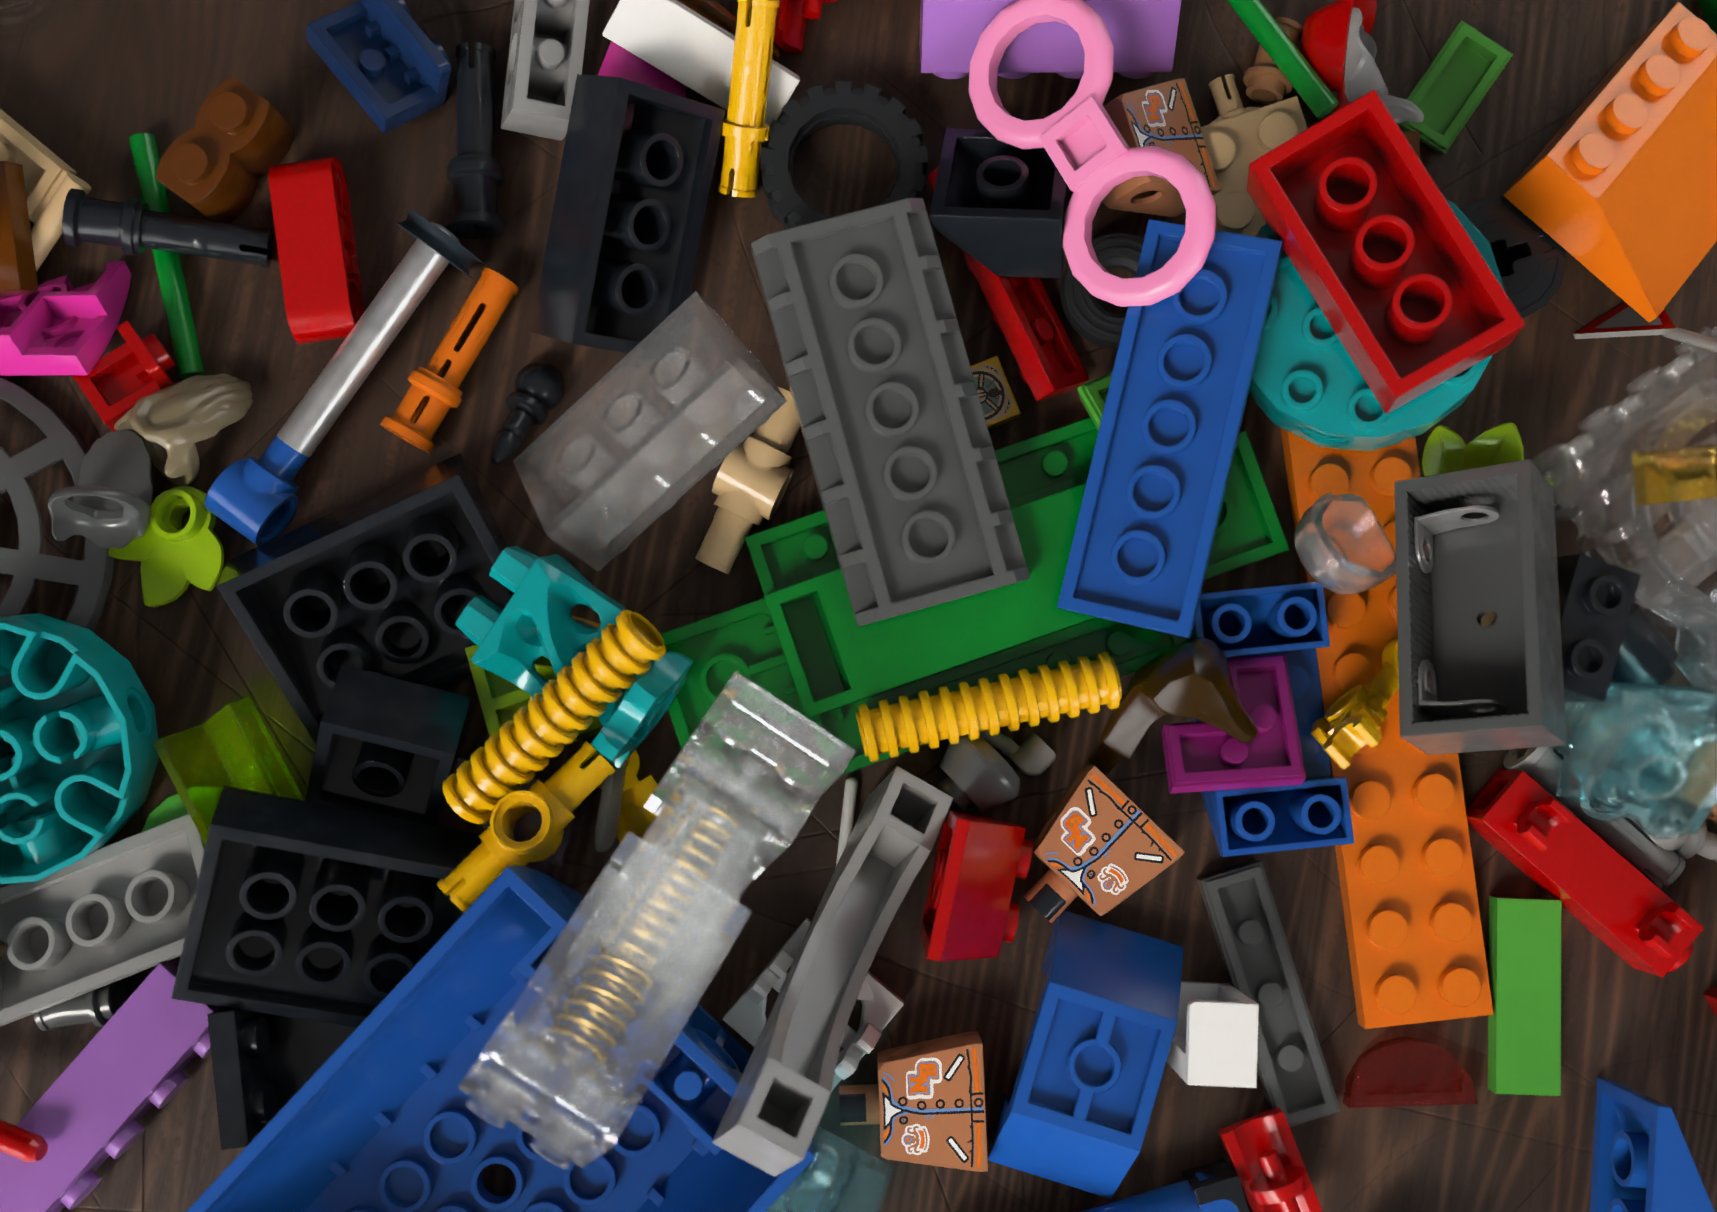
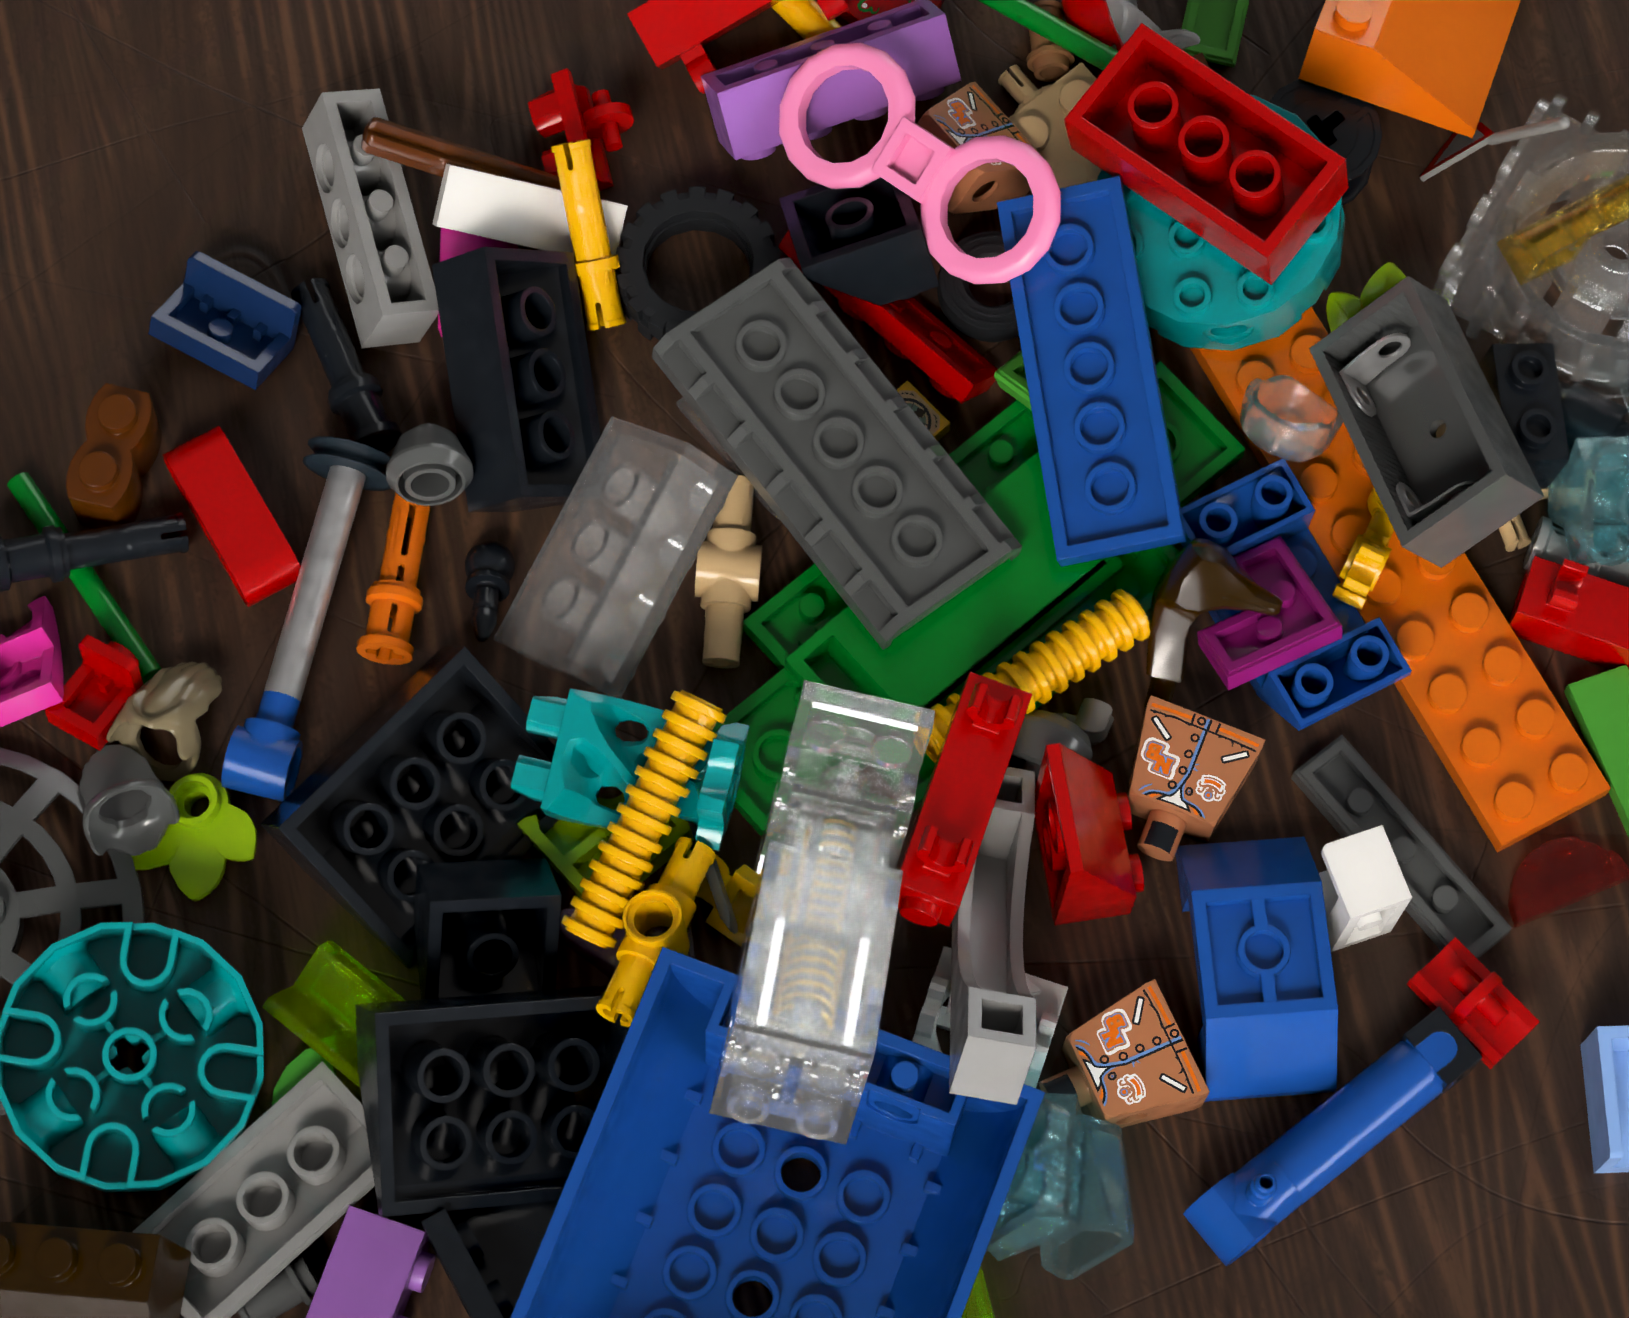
camera: 25 degrees left, 15 degrees down
(503, 274) = (429, 466): none -> dark grey cone
(856, 825) = (960, 799): none -> red brick

